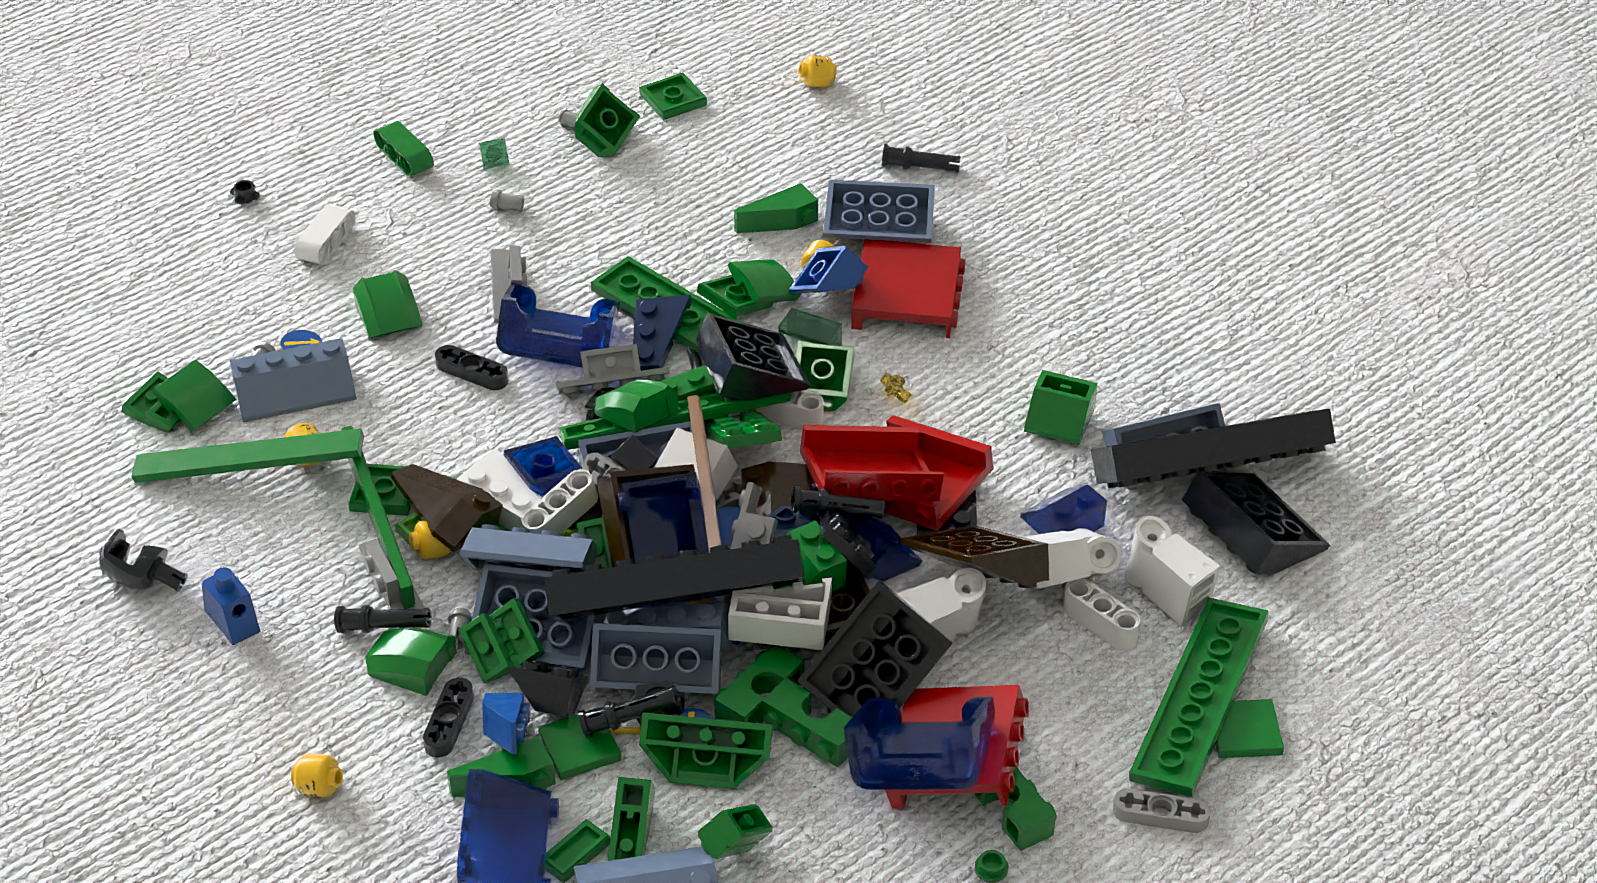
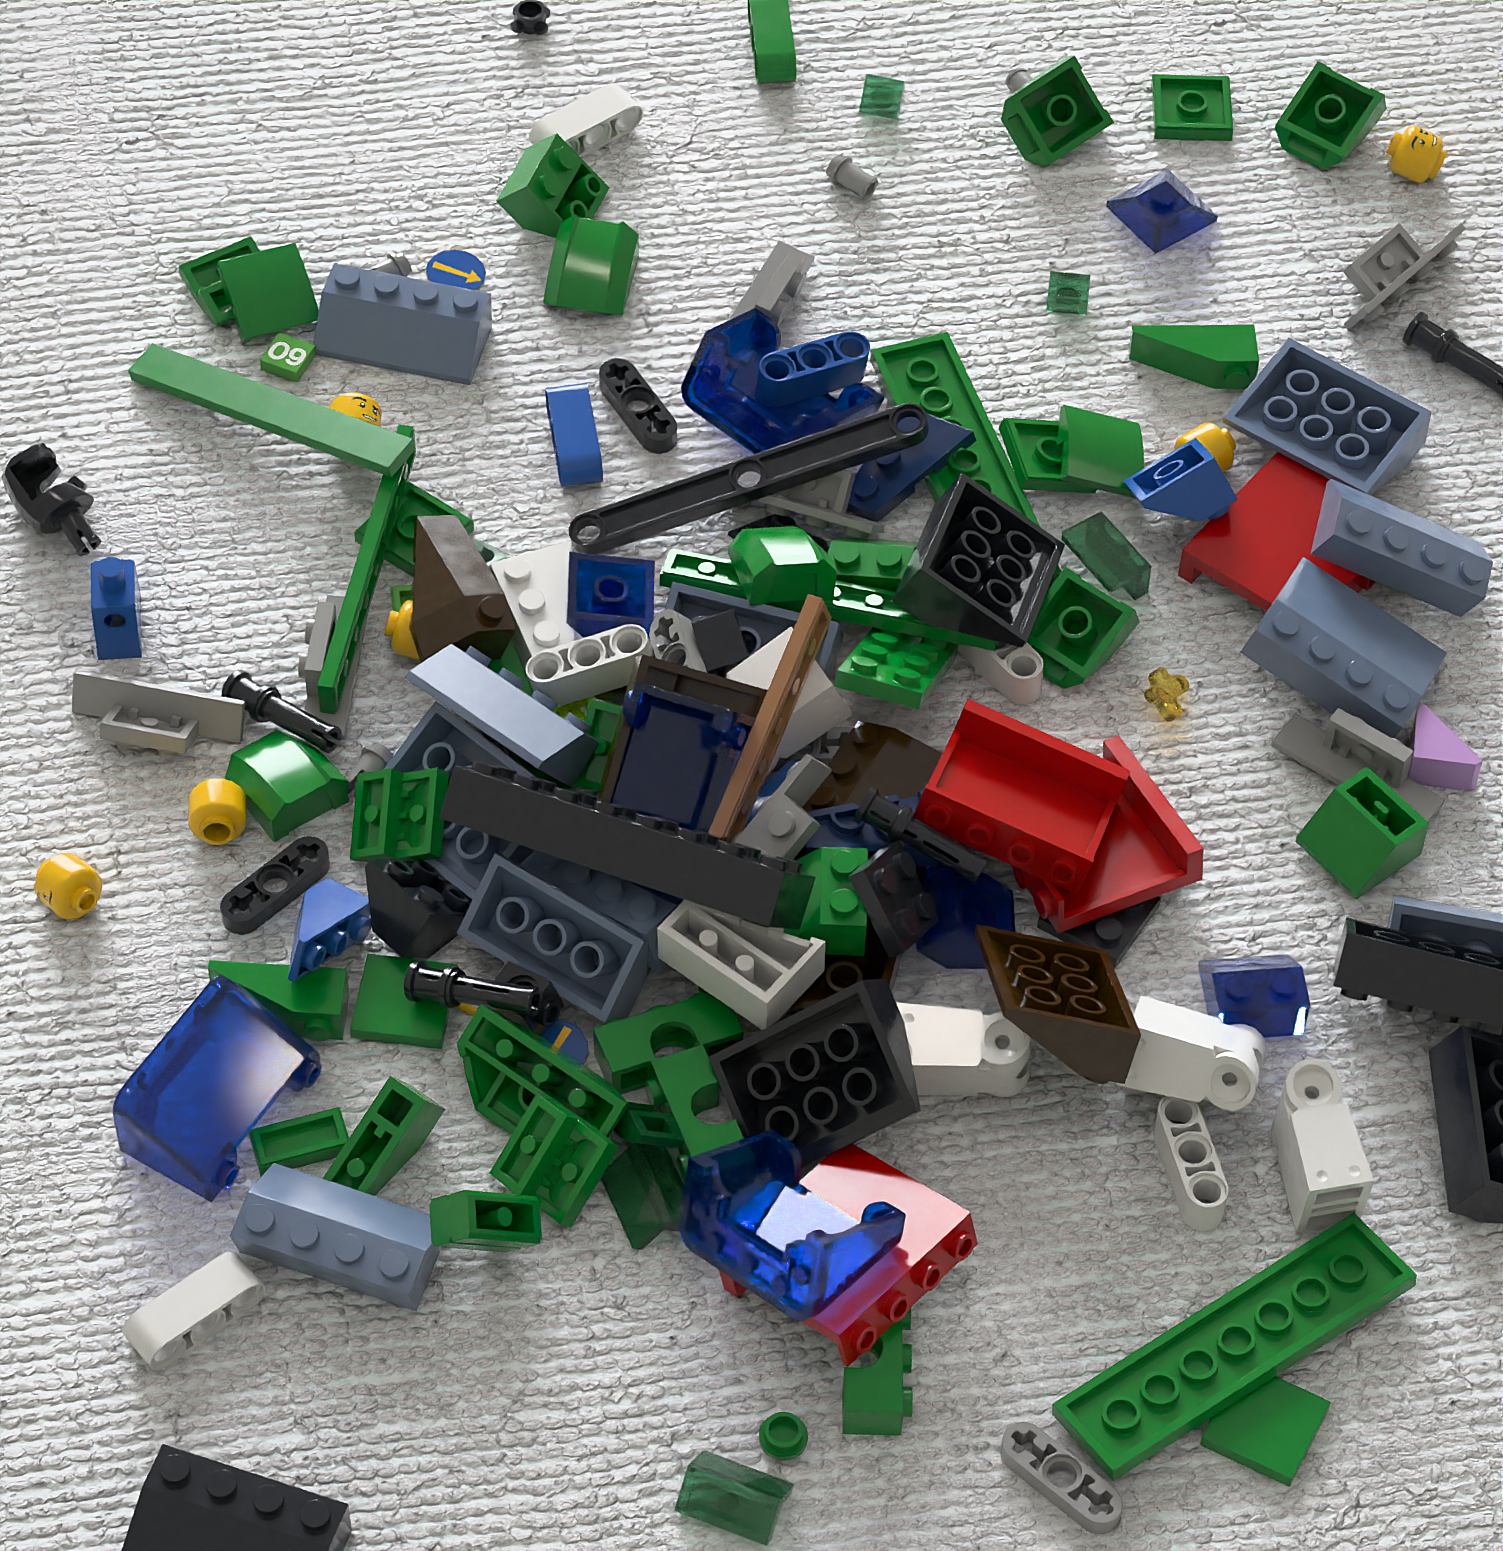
camera: 30 degrees right, 10 degrees up
(230, 428) = (288, 357): none -> bright green tile
(298, 654) = (154, 713): none -> light grey bracket
(329, 273) = (551, 187): none -> green slope
(382, 690) = (217, 811): none -> yellow head
(446, 396) = (574, 435): none -> blue beam
(567, 302) = (812, 369): none -> blue beam
(592, 358) = (719, 487): none -> black beam
(679, 211) = (1068, 293): none -> clear green plate
(697, 152) = (1161, 211): none -> clear blue slope
(744, 778) = (554, 1159): none -> green slope
(756, 70) = (1328, 117): none -> green slope
(793, 735) = (646, 1127): none -> dark green slope
(810, 778) = (644, 1192): none -> clear green panel
(849, 130) = (1389, 264): none -> light grey bracket
(972, 260) = (1401, 550): none -> sand blue slope
(981, 325) = (1344, 650): none -> sand blue slope
(1018, 372) = (1349, 748): none -> light grey bracket
(1066, 354) = (1440, 755): none -> lavender slope

